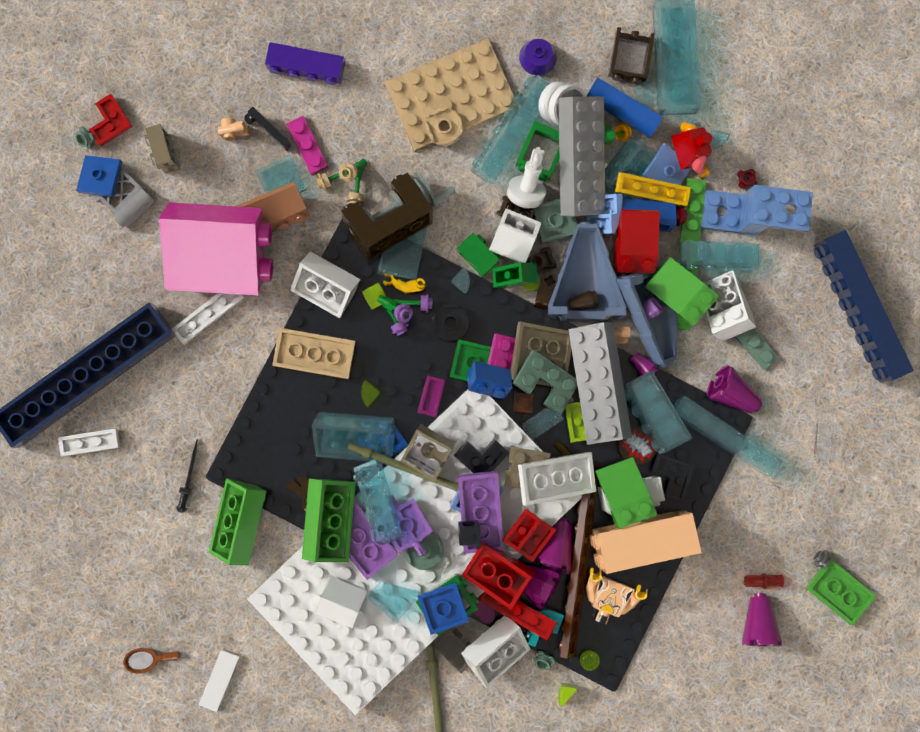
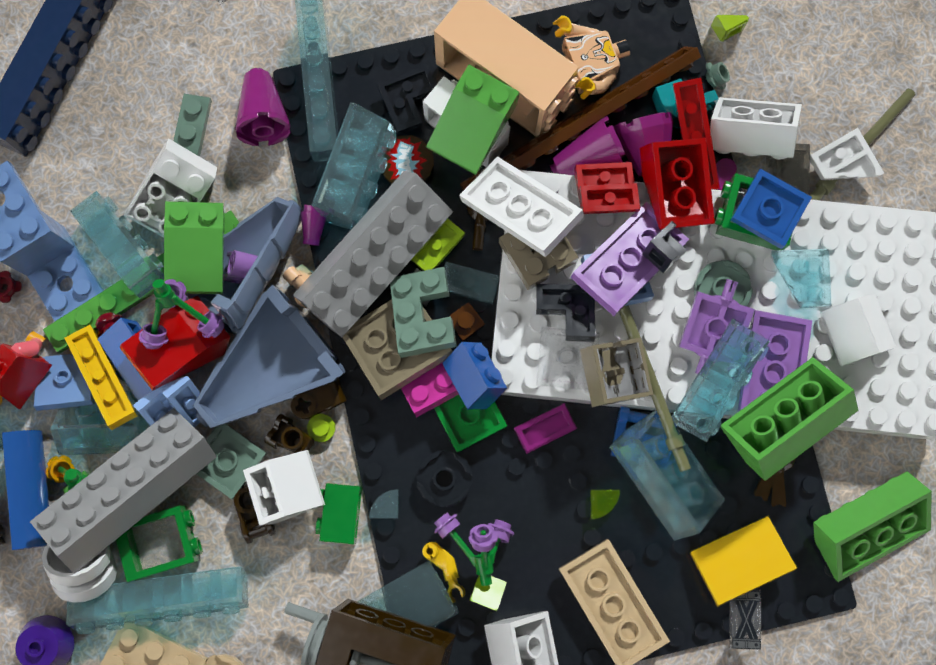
camera: 130 degrees left, 5 degrees down
(185, 491) = (892, 617): black sword -> none
(249, 414) = (746, 621): none -> tile
(278, 438) = (743, 561): none -> yellow tile
(436, 687) = (846, 159): none -> white wing
(514, 275) = (330, 449): green brick -> none
(527, 189) = (217, 521): white piece -> none
(584, 301) = (294, 348): dark brown cone -> none
(589, 660) = (675, 27): clear neon green plate -> none
(663, 256) = (167, 296): none -> plant

